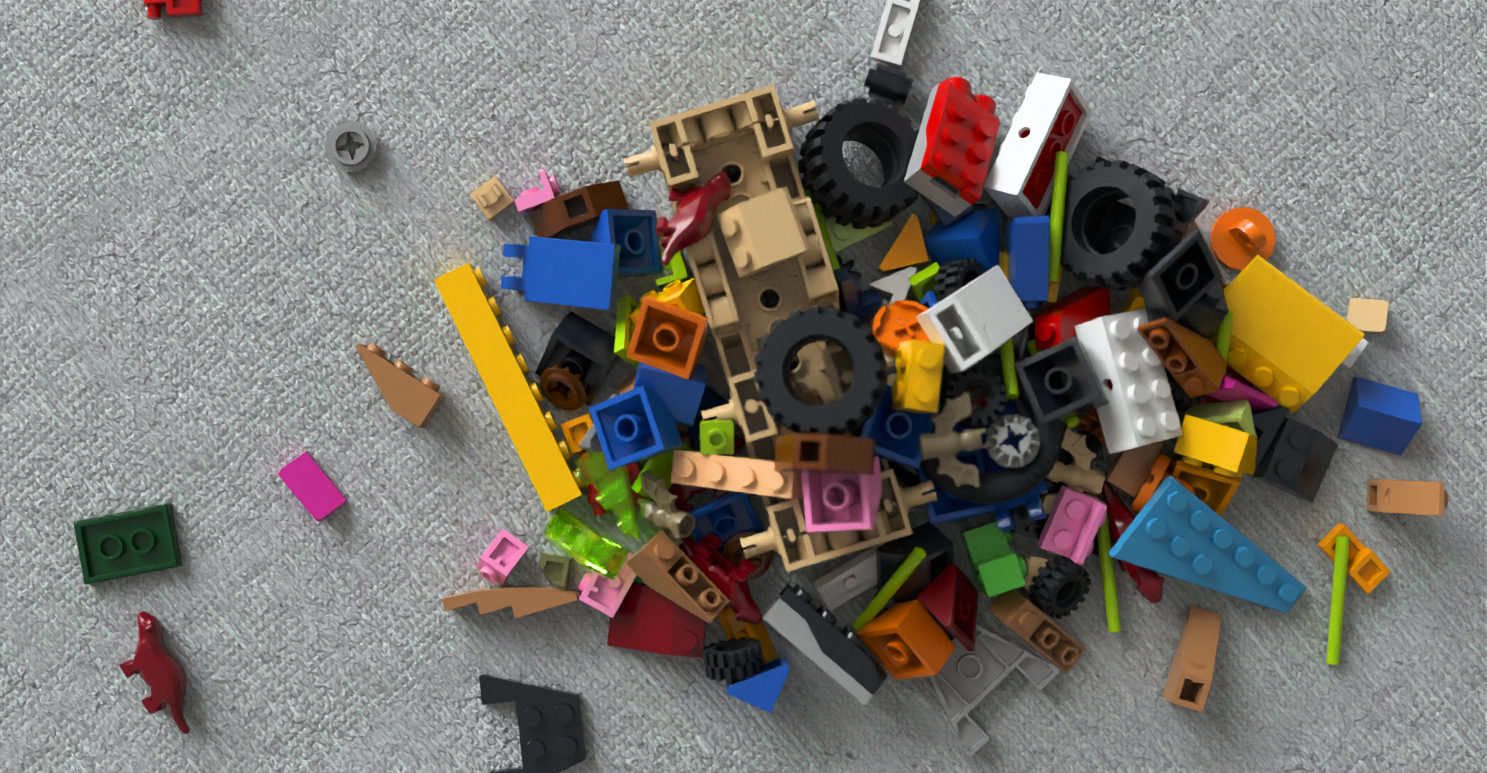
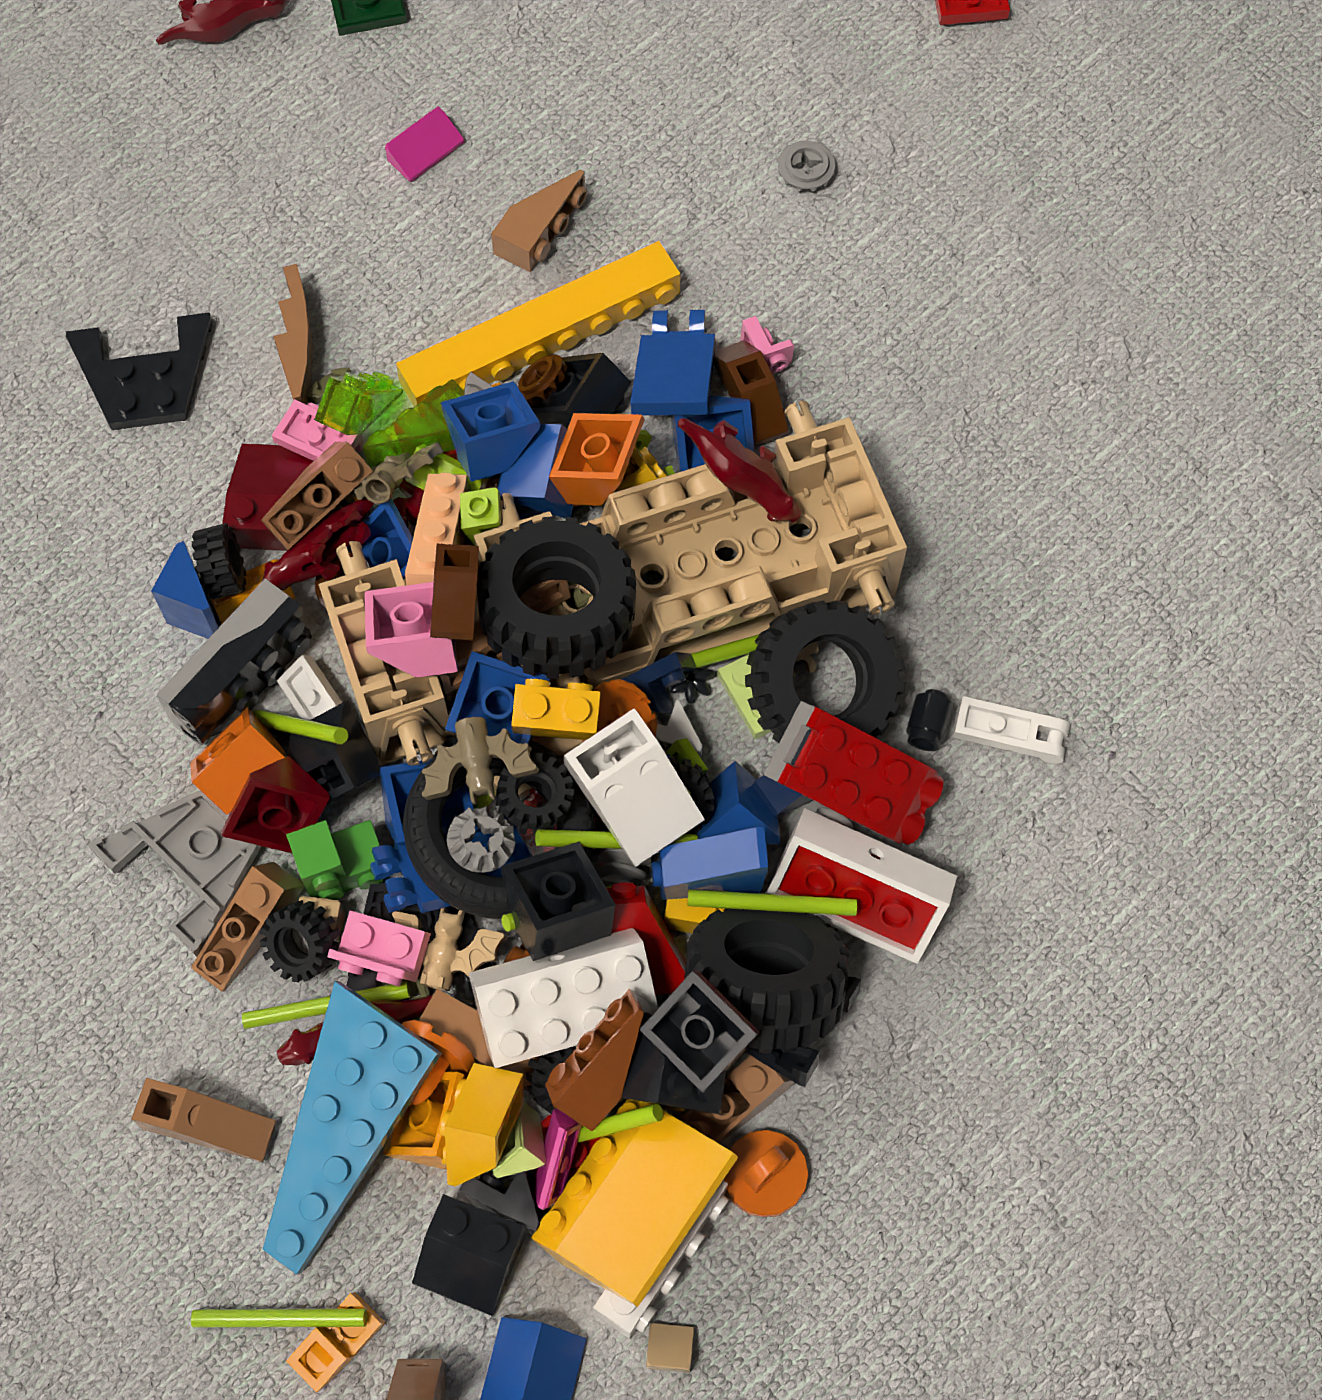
camera: 80 degrees right, 20 degrees down
(492, 198) = (758, 302): tan tile -> none
(501, 557) = (345, 328): bright pink bracket -> none
(763, 232) = (726, 542): tan slope -> none
(907, 249) = (727, 744): light orange slope -> none

